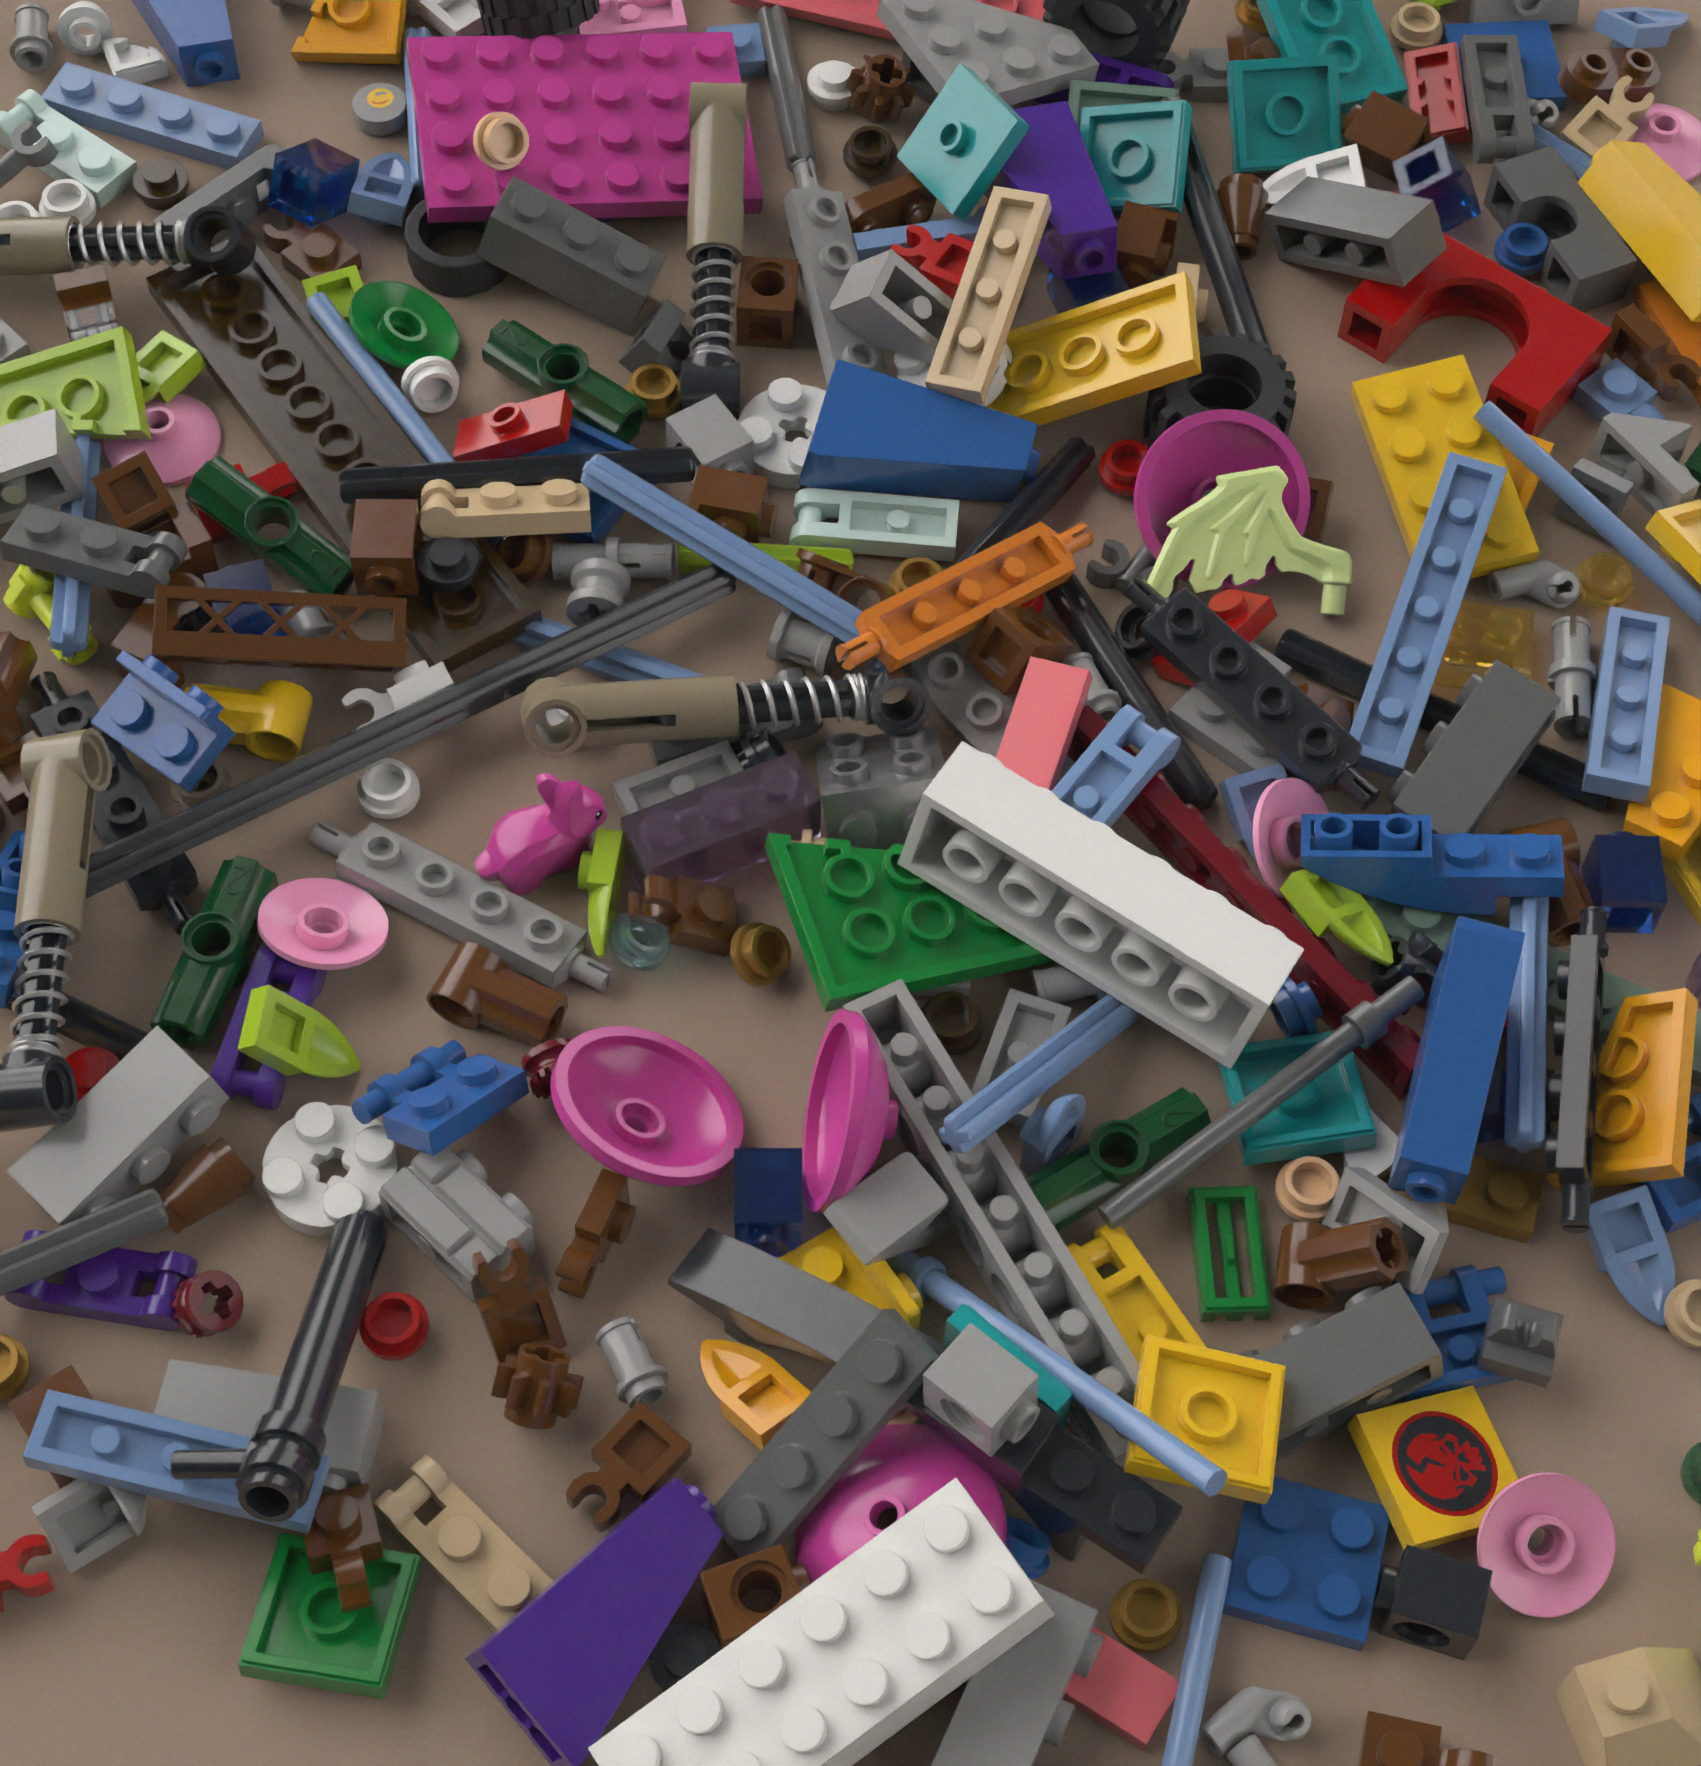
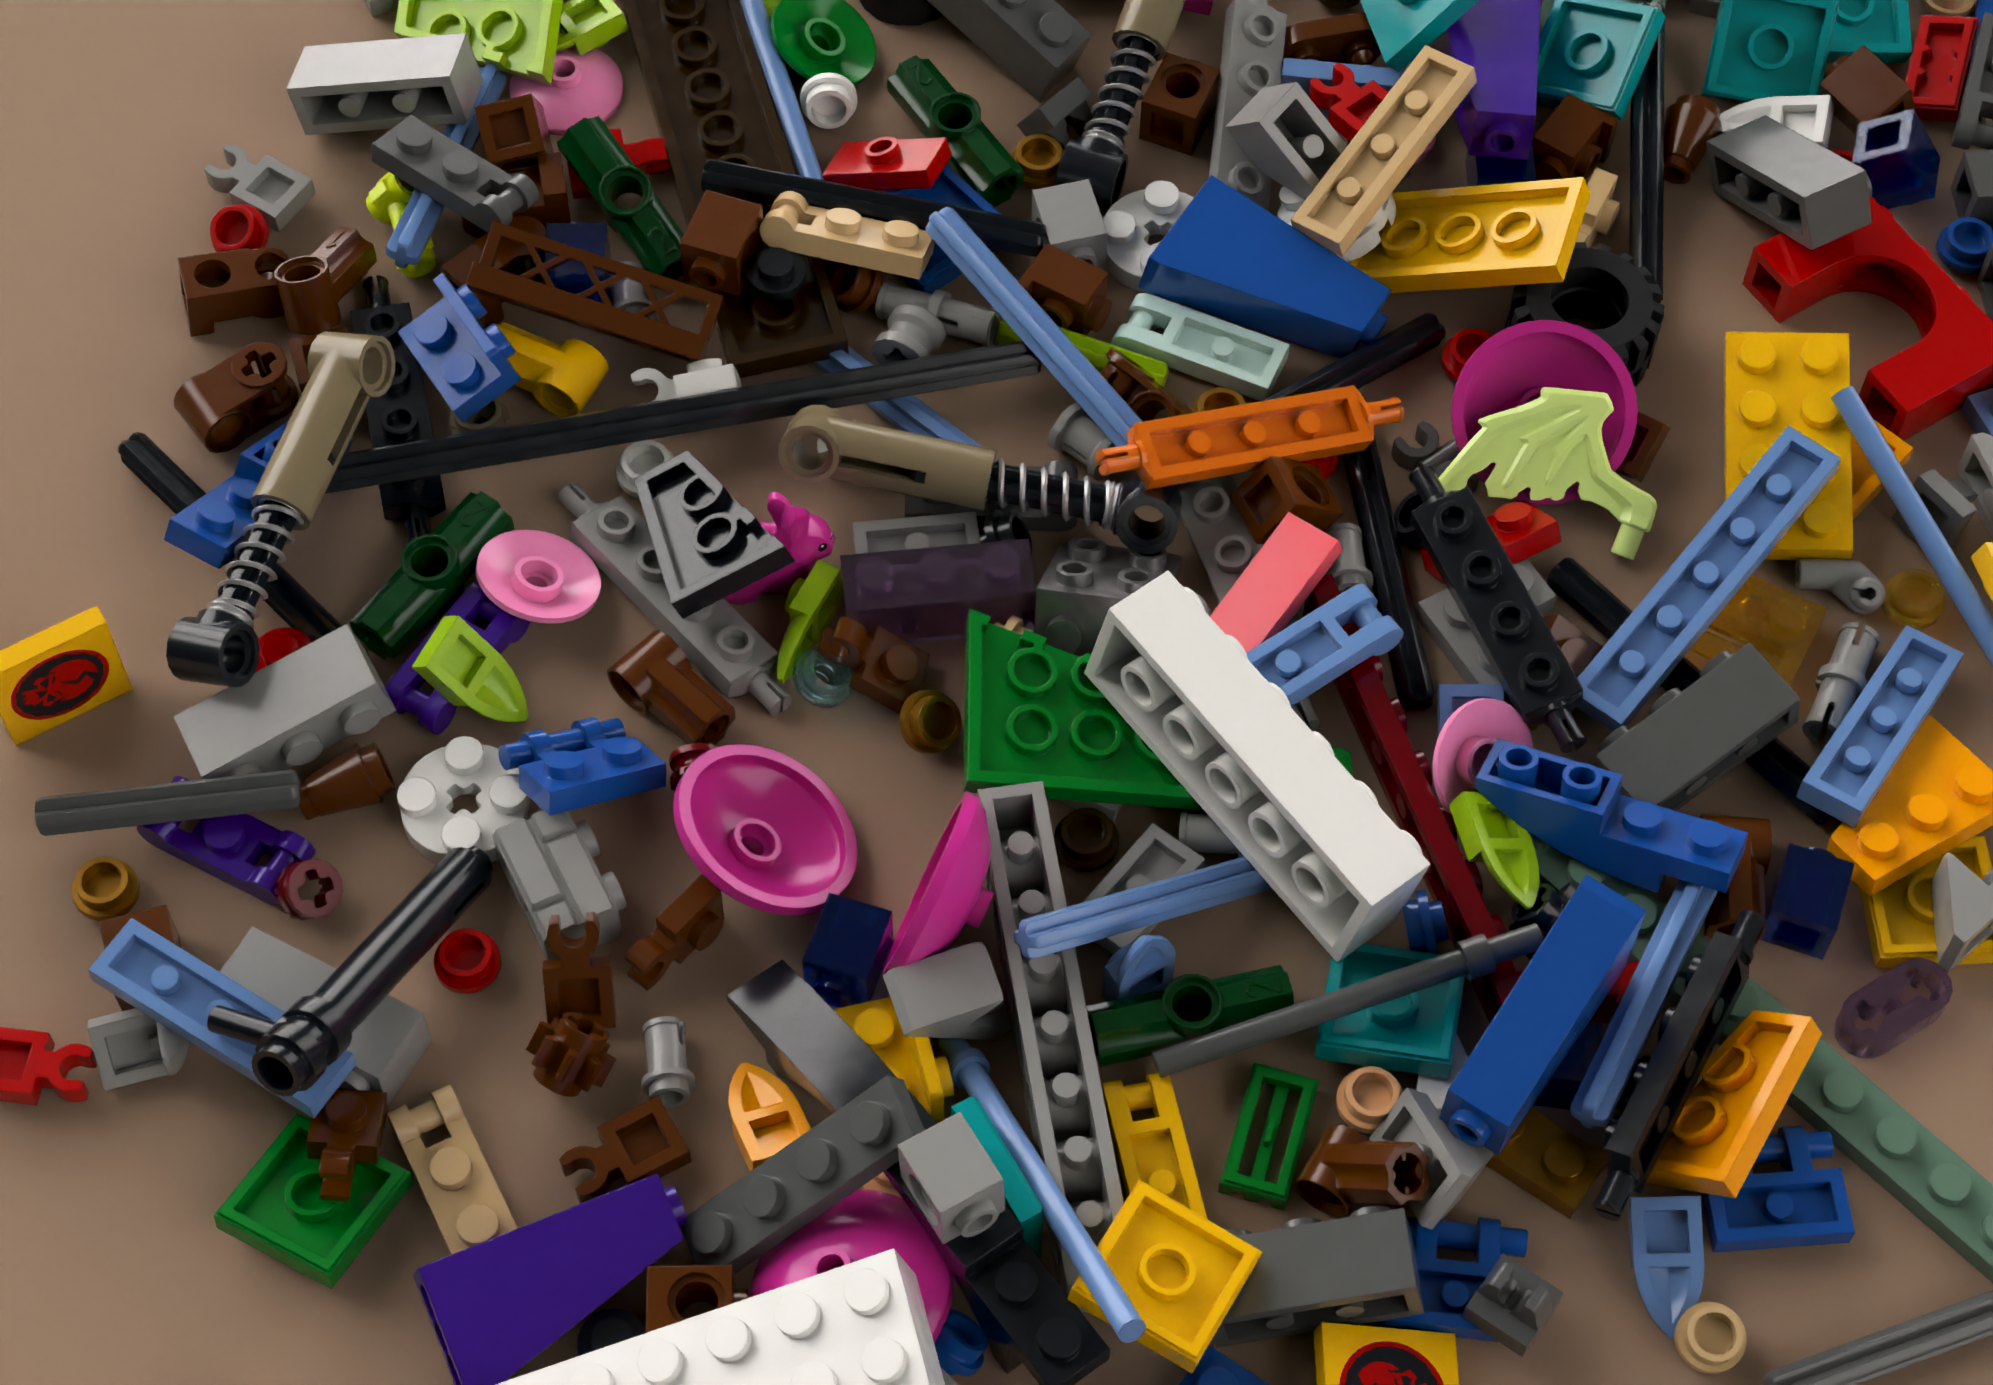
camera: 20 degrees right, 0 degrees up
(477, 836) = (703, 535): none -> wing

